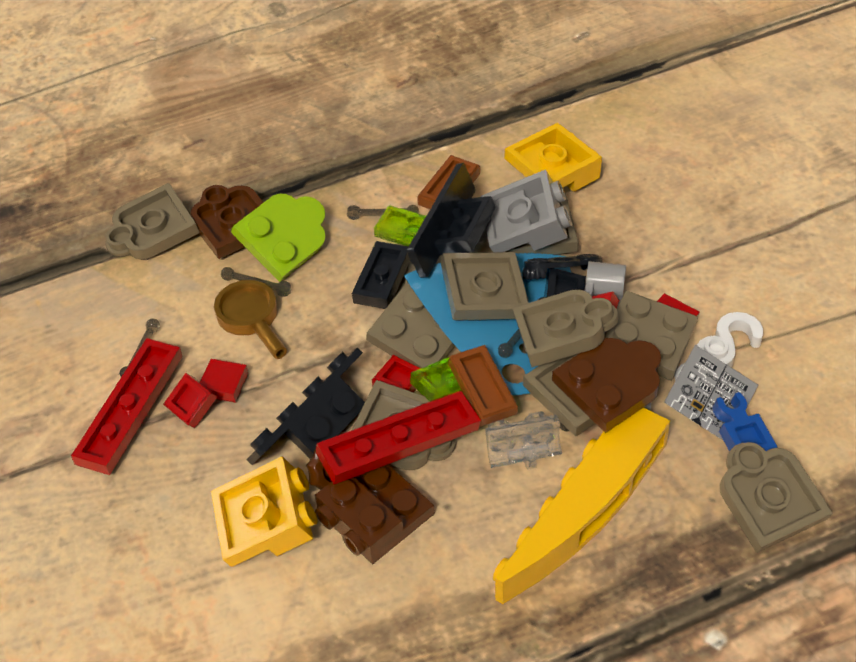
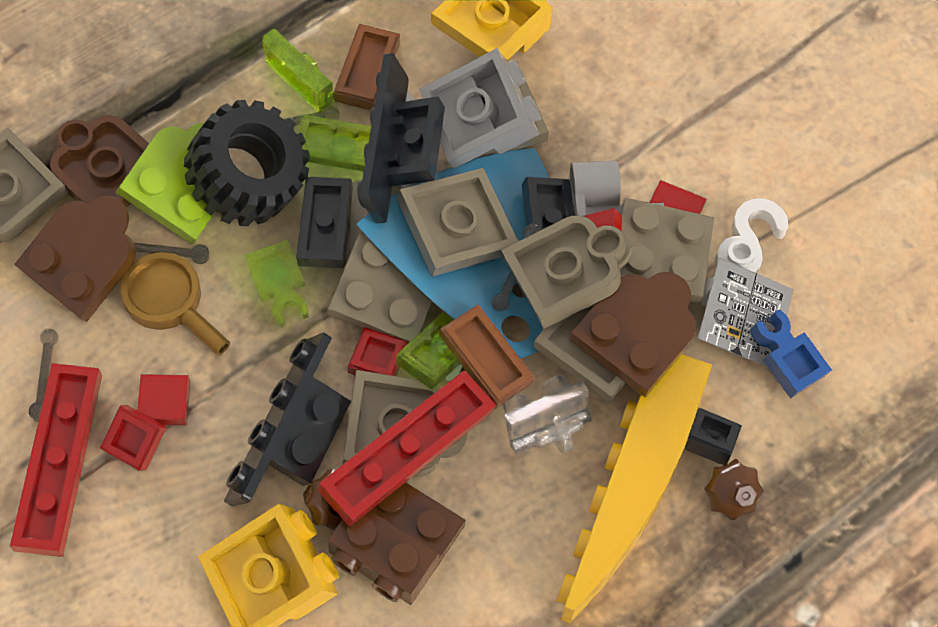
camera: 20 degrees left, 15 degrees up
(194, 271) = (81, 253): none -> reddish brown plate
(335, 310) = (277, 276): none -> clear neon green plate
(347, 207) = (265, 138): none -> black tyre
(393, 176) = (298, 70): none -> clear neon green plate
(538, 267) = (512, 178): black piece -> none
(660, 480) = (712, 437): none -> black tile
(669, 523) = (734, 489): none -> reddish brown piece
(770, 494) = (835, 432): dark tan plate -> none

